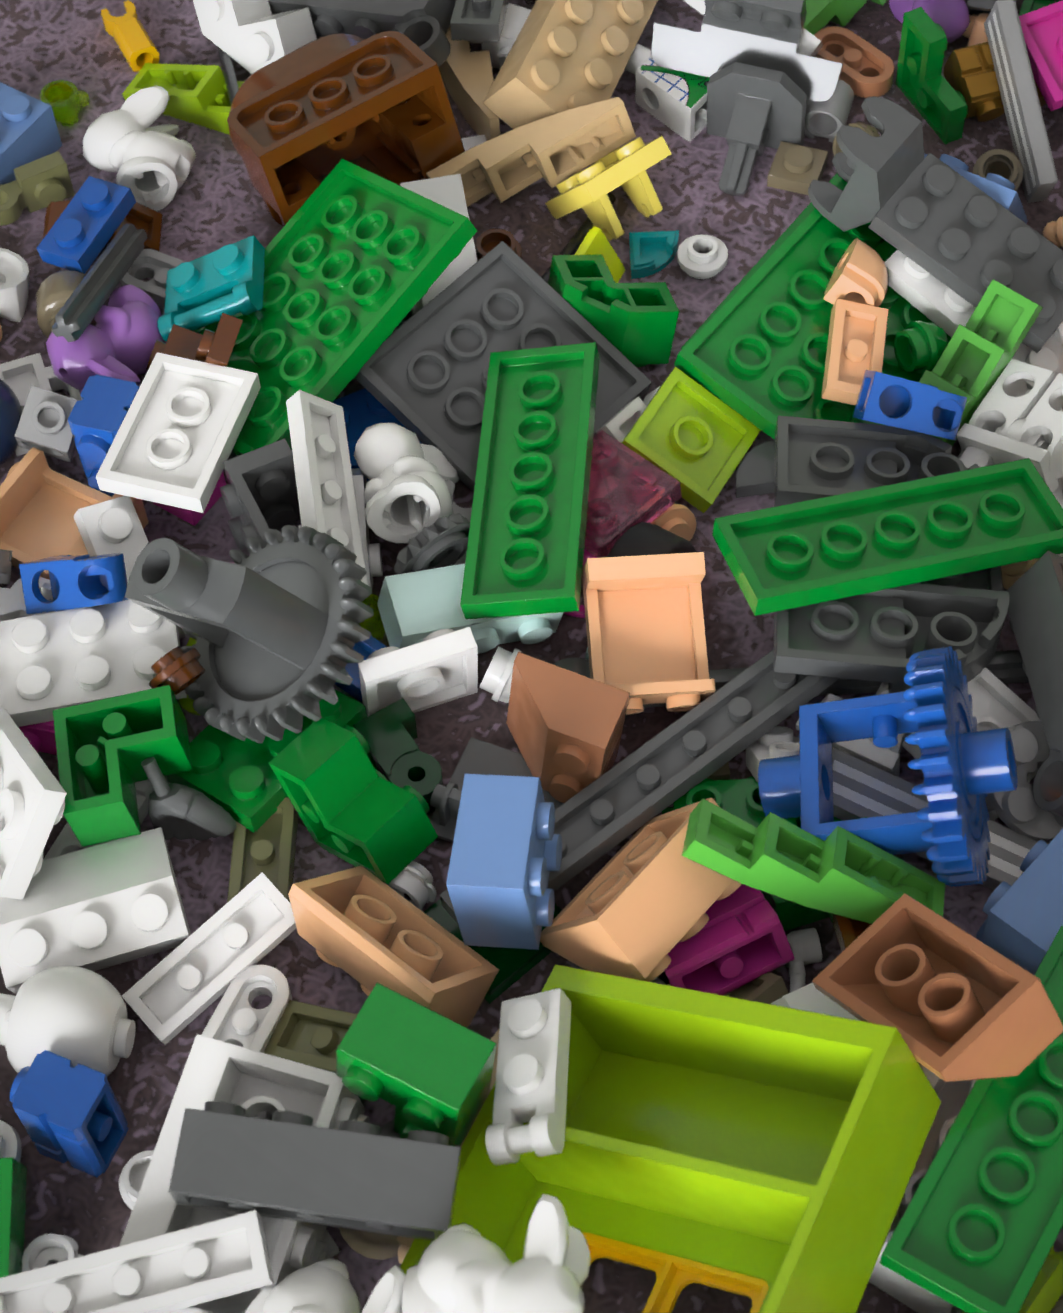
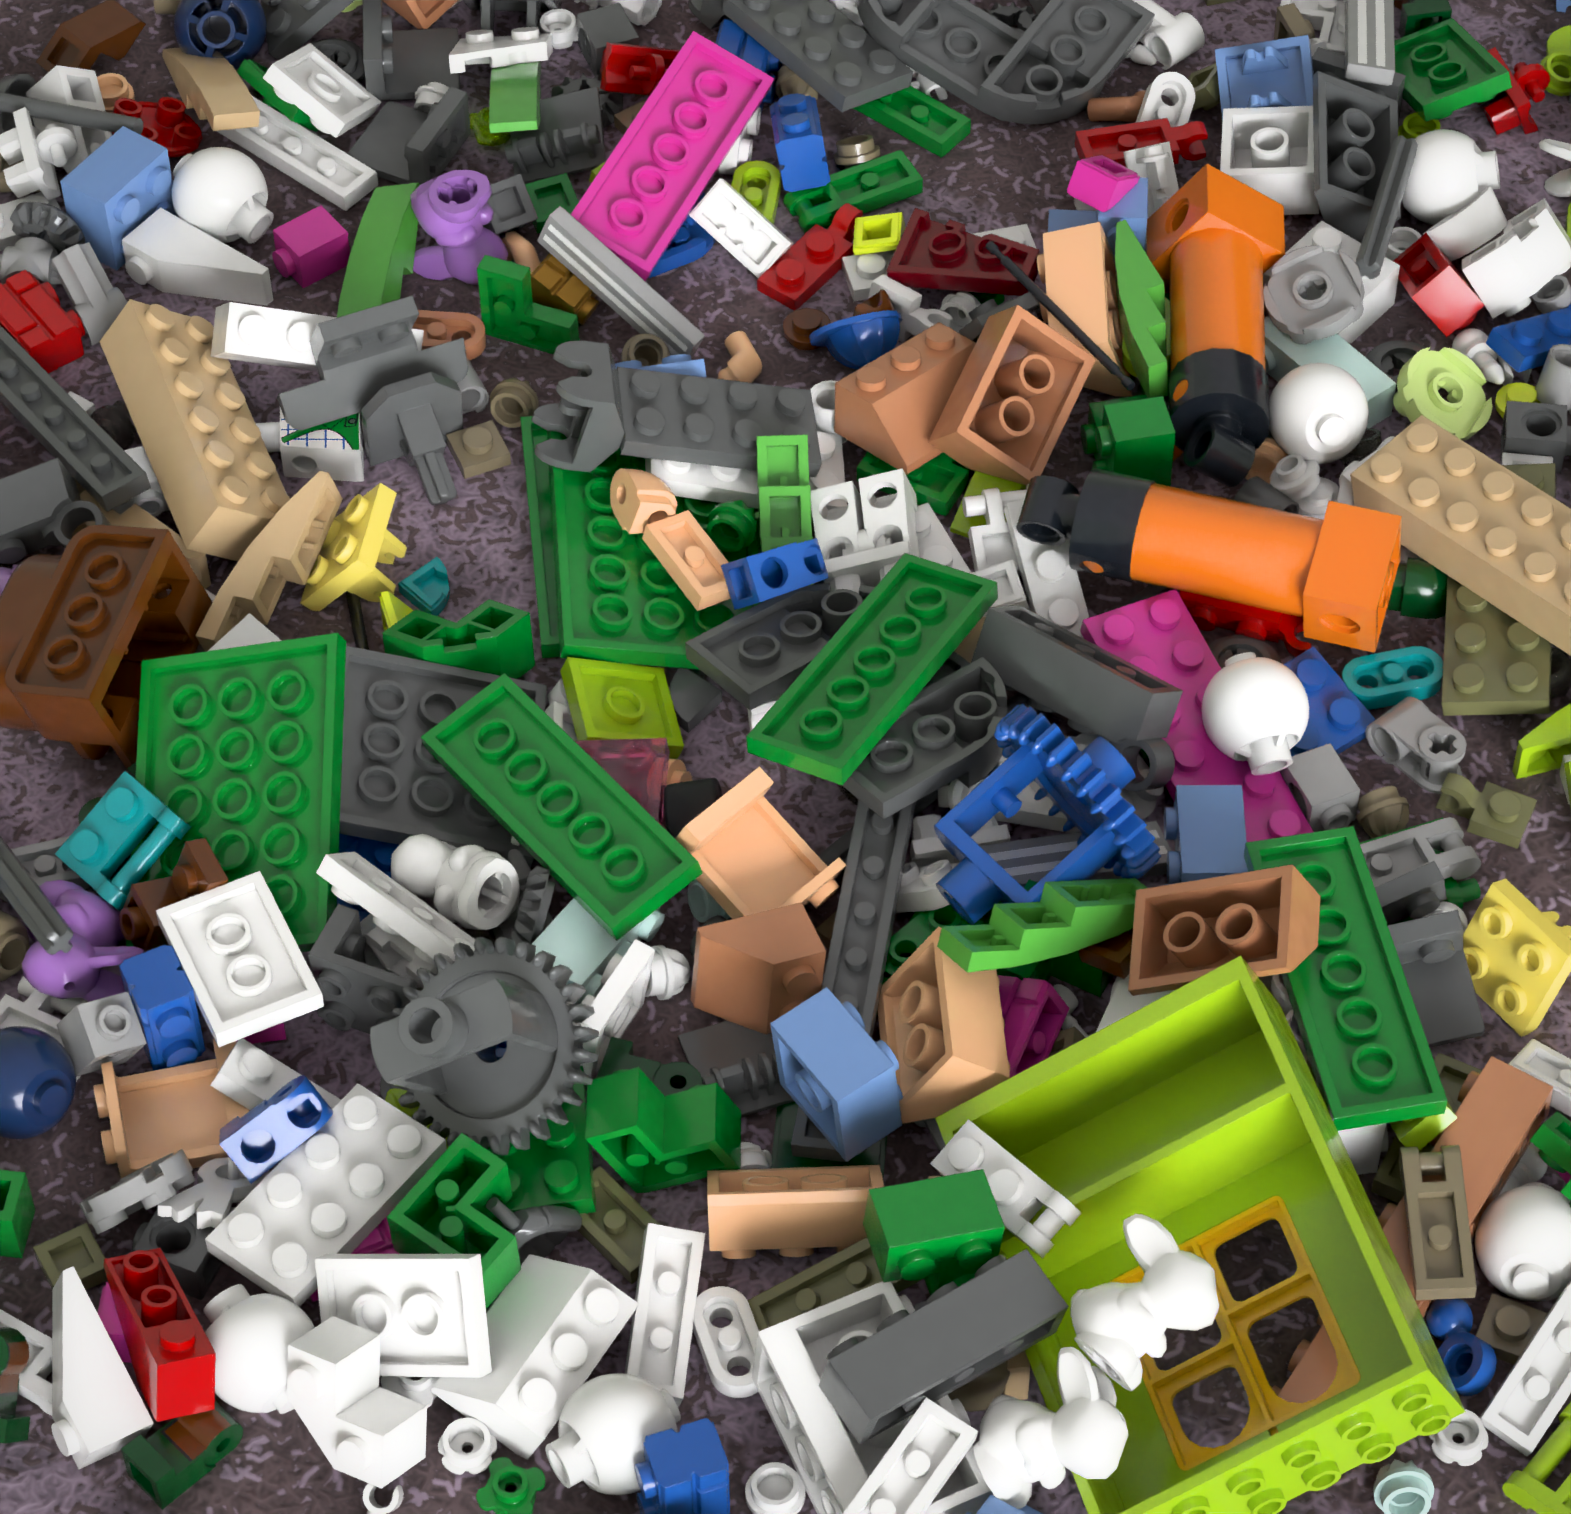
camera: 45 degrees left, 5 degrees down
(177, 670) = (444, 1124): reddish brown plate -> none
(702, 265) = (476, 574): white plate -> none

